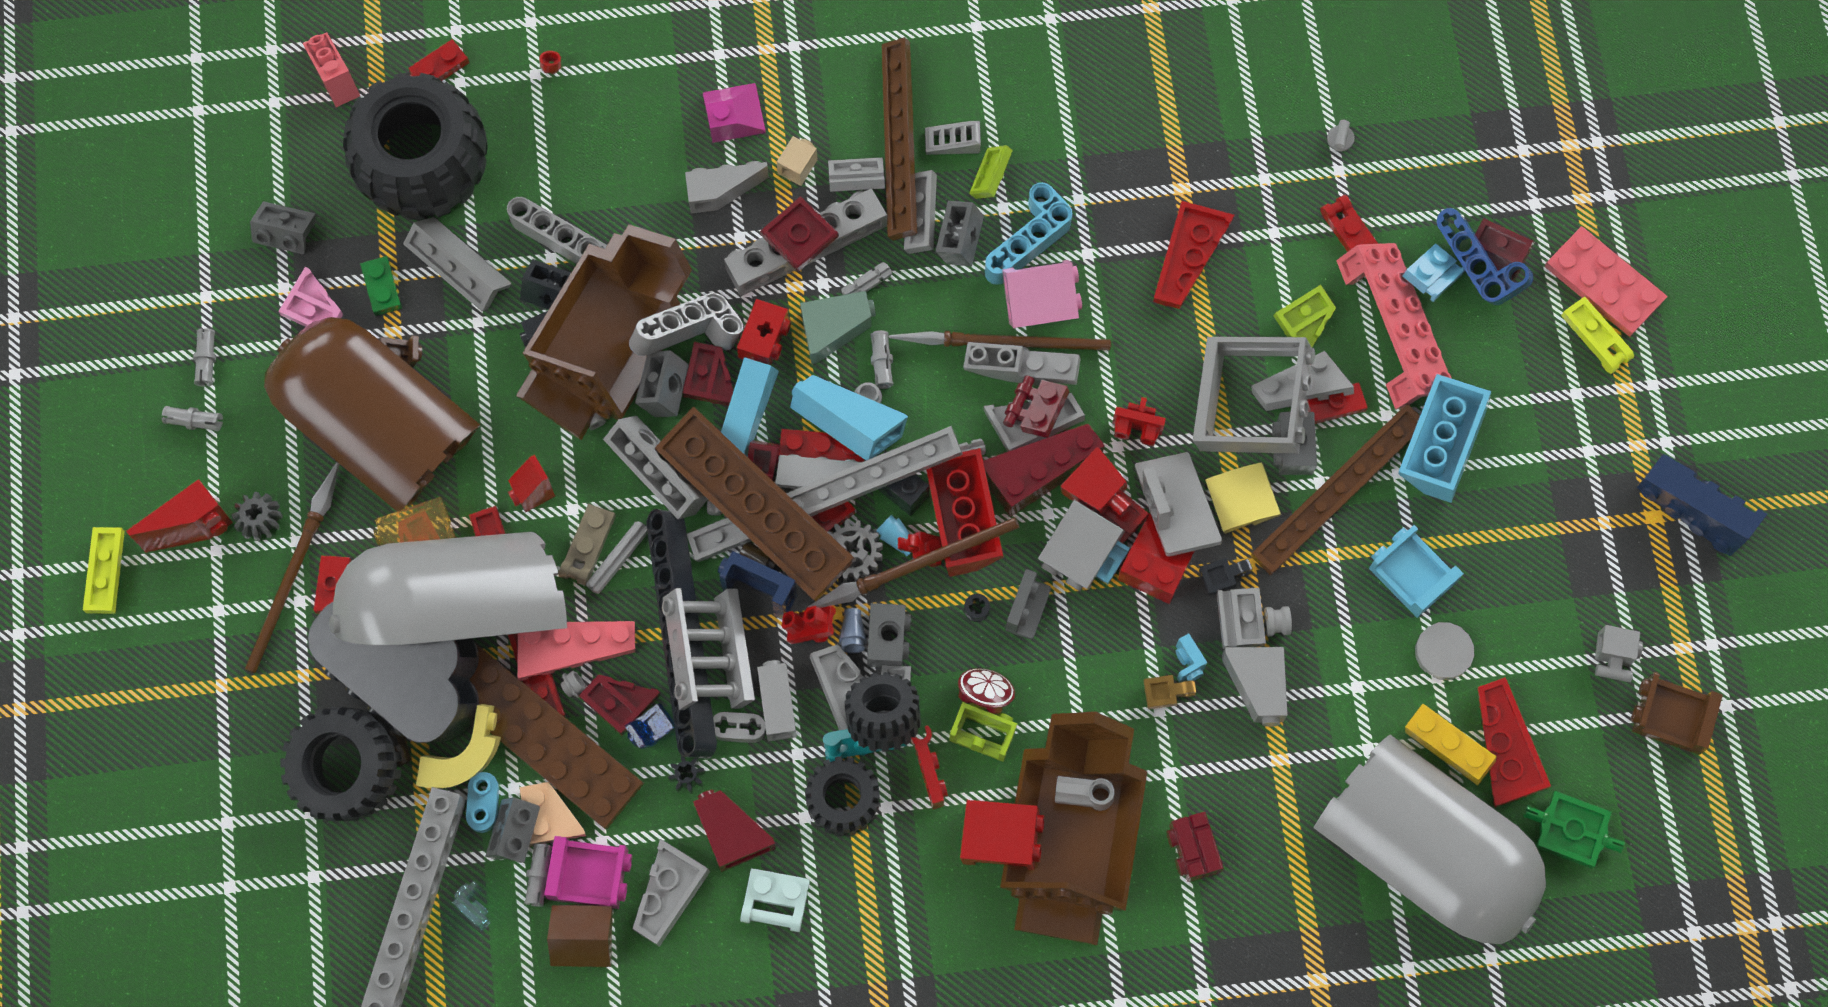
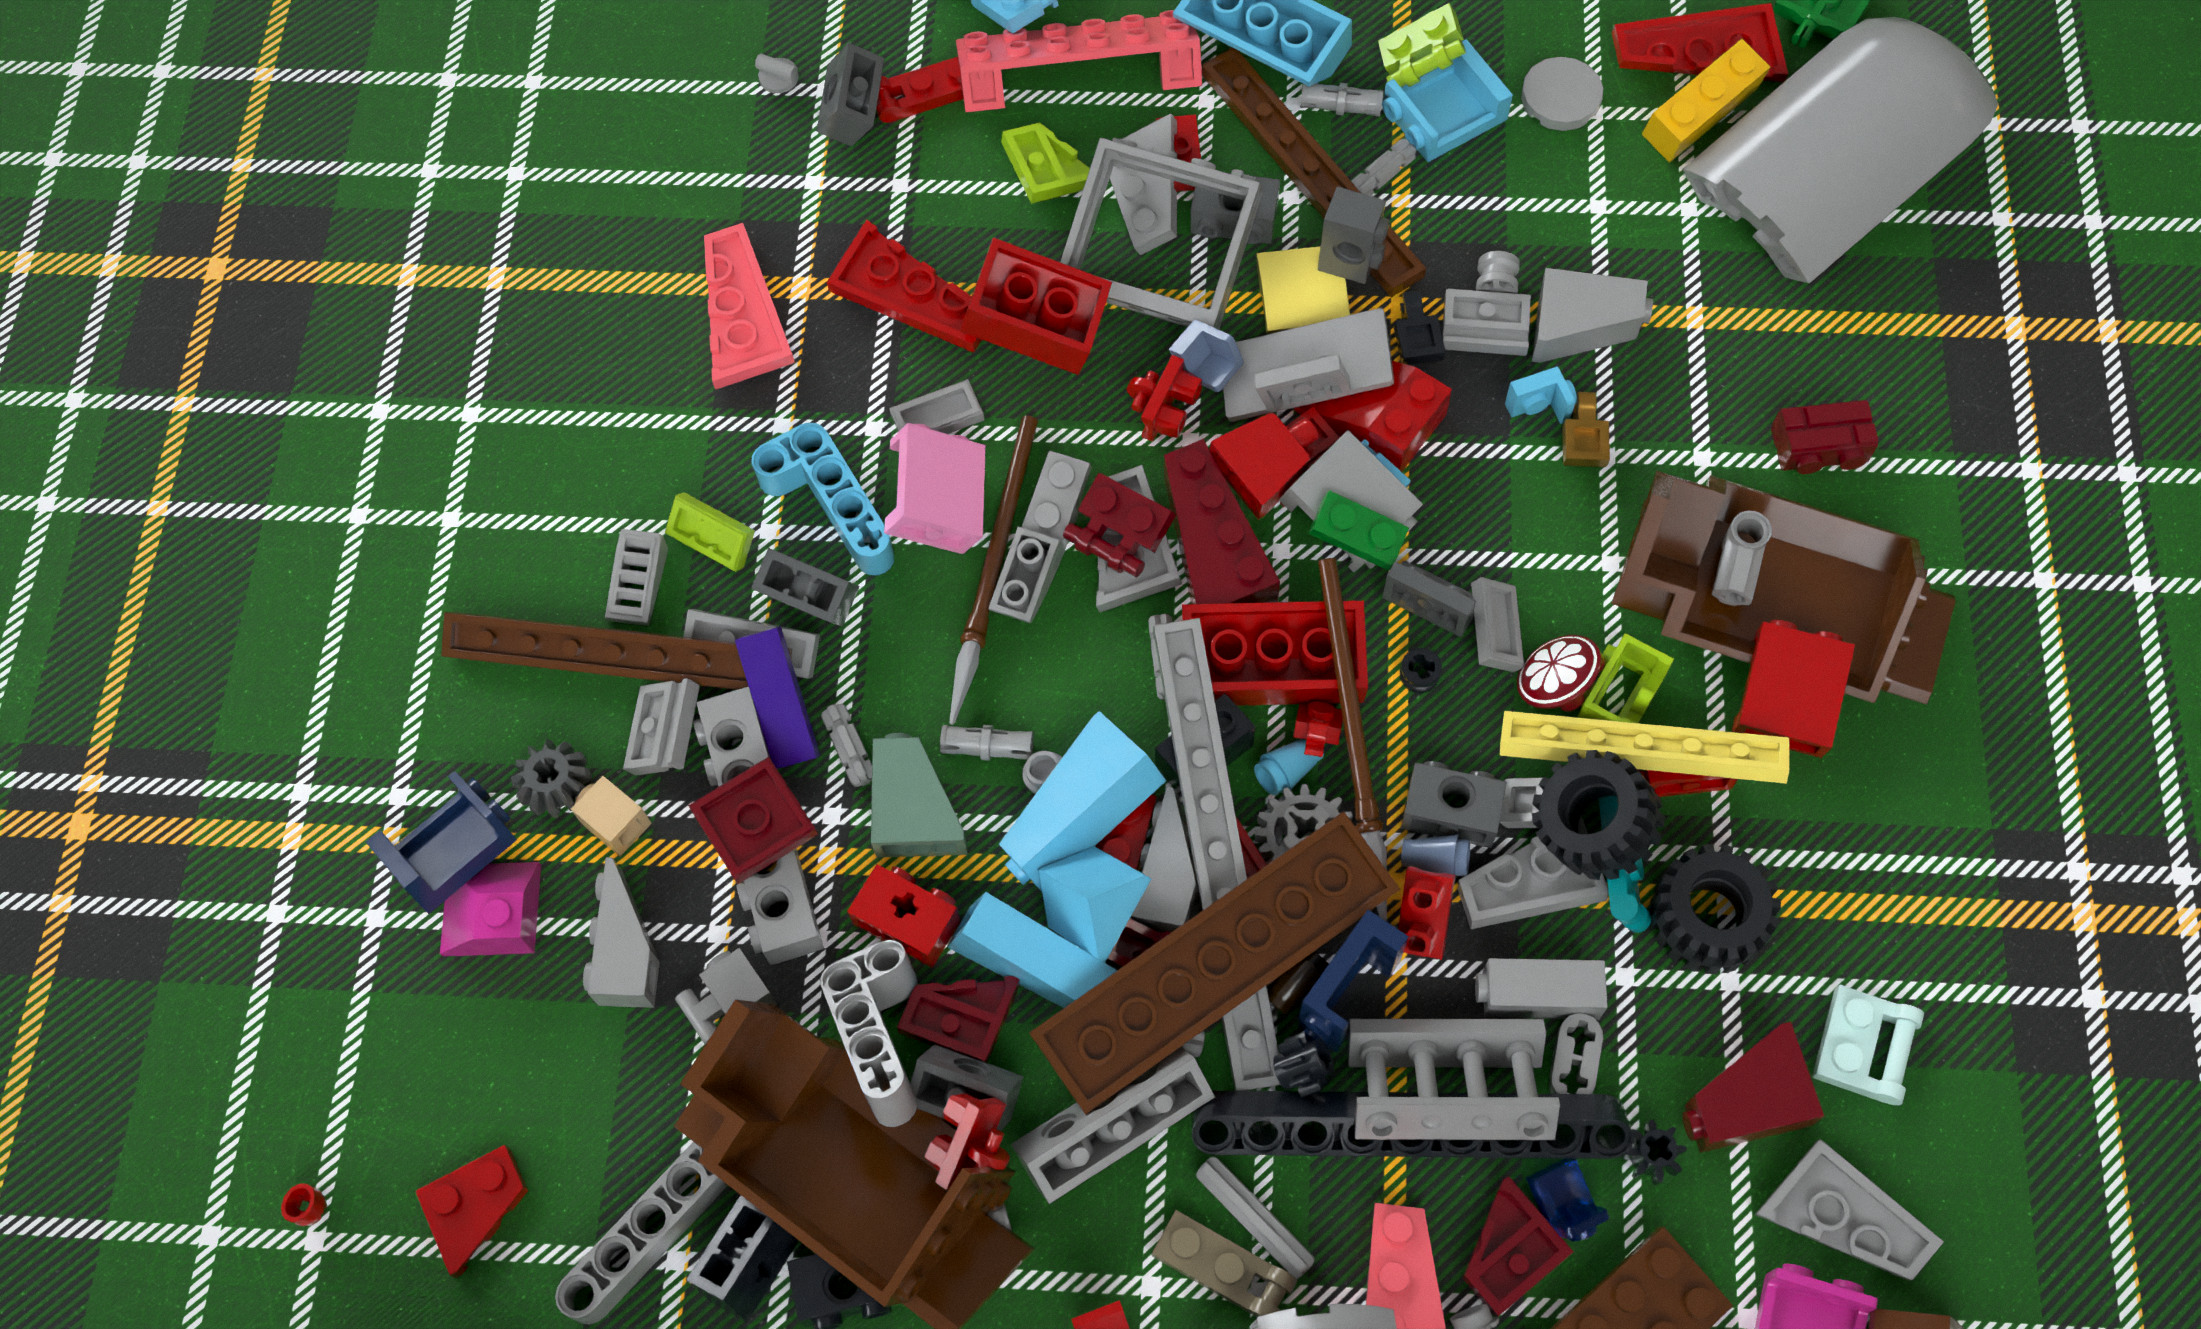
camera: 75 degrees left, 5 degrees down
(564, 145) = (470, 1205): none -> red wing
(628, 388) = (975, 1139): none -> red hips
(701, 251) = (727, 978): none -> light grey brick
(704, 565) = (1303, 1064): none -> black gear
(761, 76) = (447, 845): none -> dark blue panel
(787, 431) = (1091, 899): none -> medium azure slope
(824, 125) = (548, 763): none -> dark grey gear
(883, 232) = (777, 697): none -> dark purple tile
(937, 739) = (1648, 746): none -> light yellow plate
(1015, 649) = (1497, 625): none -> light grey tile
(1055, 548) = (1358, 530): none -> green plate
(1103, 288) = (941, 410): none -> light grey tile
(1147, 158) = (743, 319): none -> coral wing
(1173, 441) = (1208, 354): none -> sand blue panel
(1182, 327) = (1036, 306): none -> red slope
(1272, 512) = (1353, 235): none -> dark grey brick
(1327, 183) = (850, 94): none -> dark grey brick
(1351, 537) = (1385, 167): none -> light grey axle
(1402, 502) = (1342, 99): none -> light grey pin
(1456, 544) = (1422, 46): none -> lime plate

